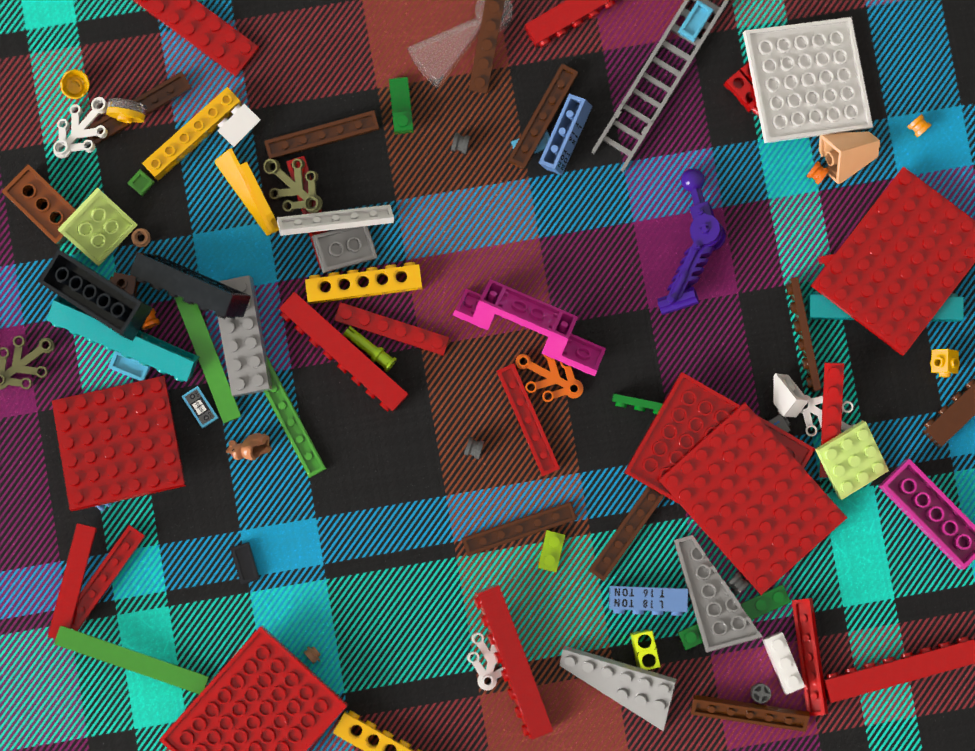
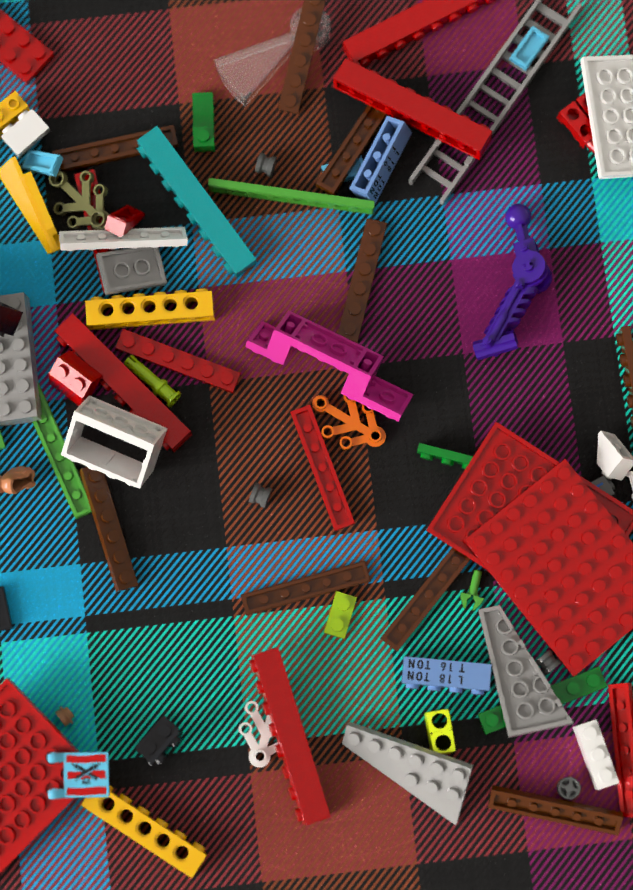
camera: 10 degrees right, 5 degrees down
(256, 152) = (42, 163): none -> medium azure tile
(300, 351) = (74, 377): none -> red slope
(333, 205) = (123, 220): none -> red slope
(335, 707) = (84, 774): none -> flag
(339, 484) = (109, 529): none -> reddish brown plate
(346, 394) = (120, 425): none -> white hose
(397, 671) = (159, 741): none -> black bracket
(399, 181) = (196, 201): none -> teal brick
(484, 171) = (291, 196): none -> bright green tile
(554, 245) = (362, 279): none -> reddish brown plate
(592, 86) = (412, 108): none -> red brick
(668, 523) = (473, 591): none -> bright green bar

